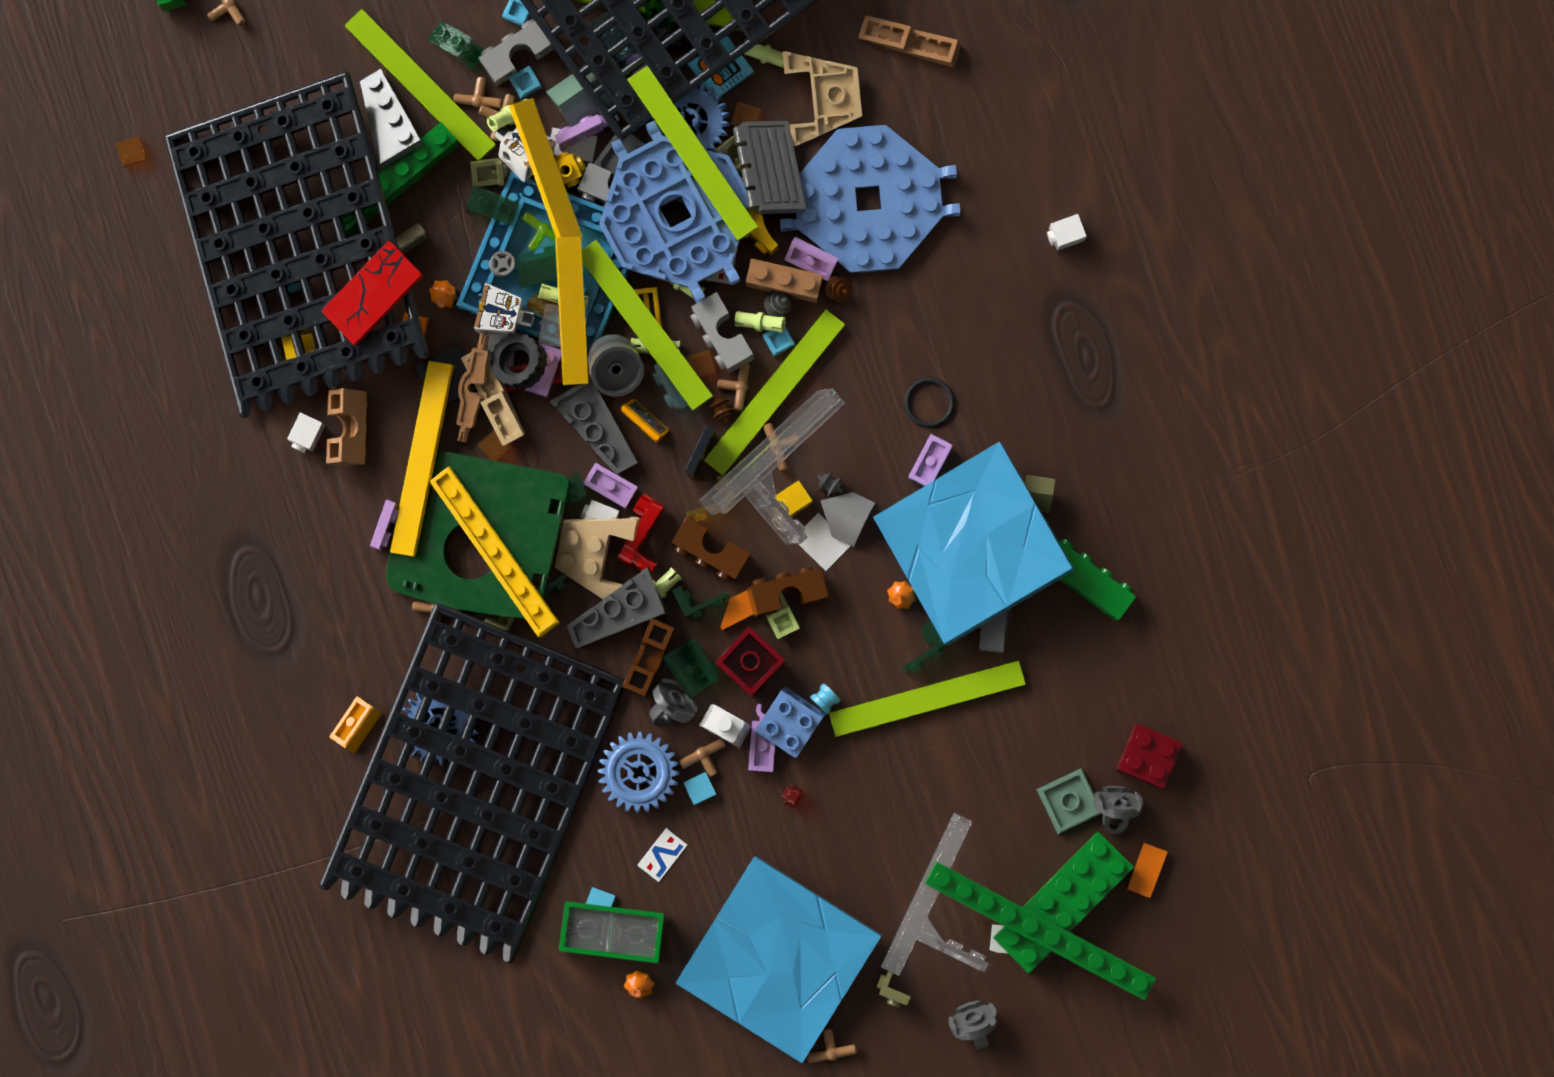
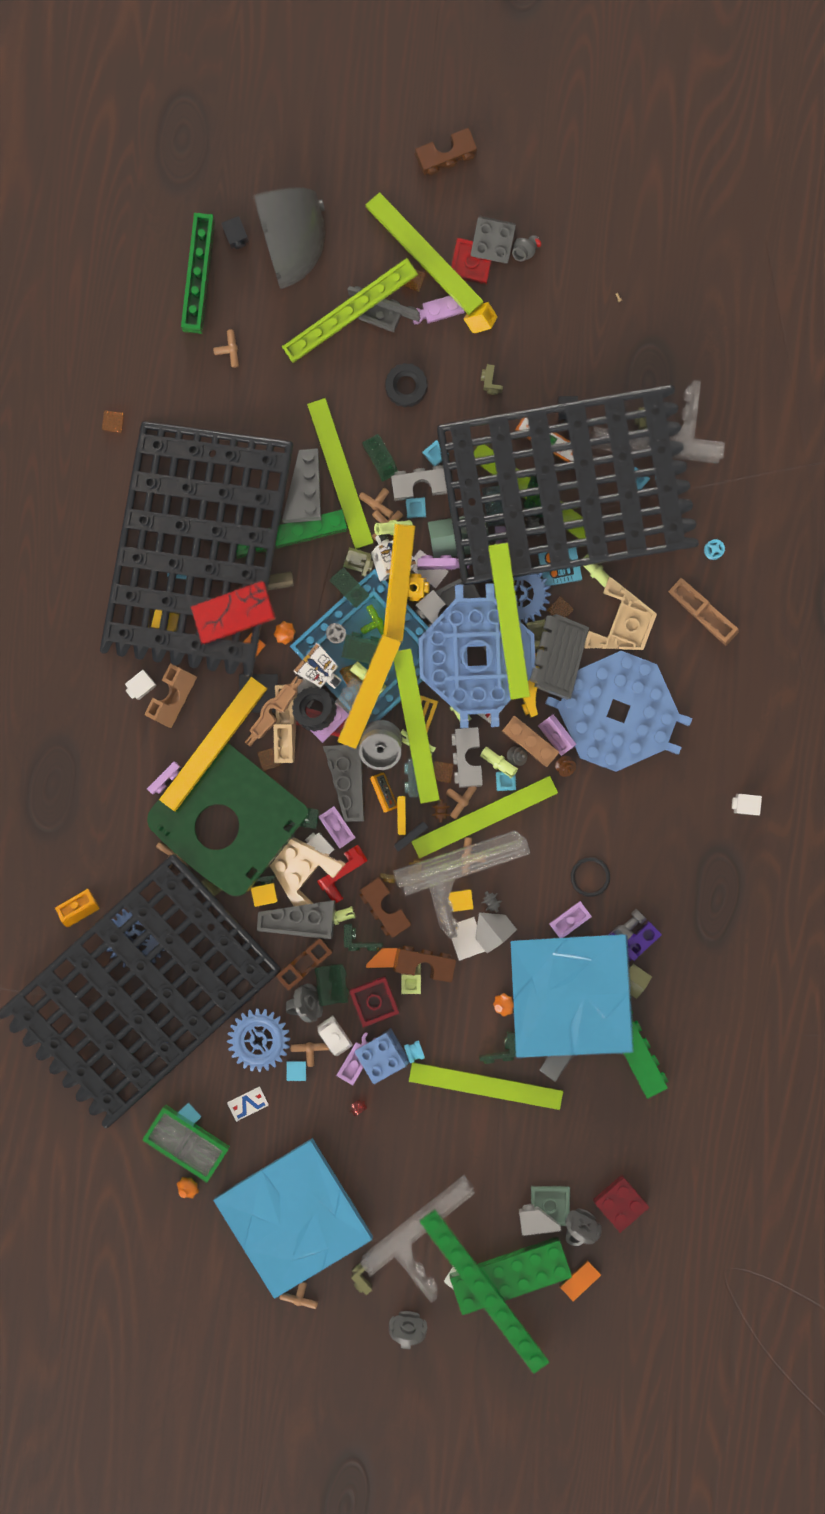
camera: 20 degrees right, 5 degrees up
(494, 552) = (231, 837): yellow tile -> none
(563, 602) = (264, 894): none -> yellow panel
(677, 435) = (401, 815): none -> yellow tile
(1024, 441) = (642, 939): none -> dark purple hips
(1060, 823) = (536, 1221): none -> light grey slope

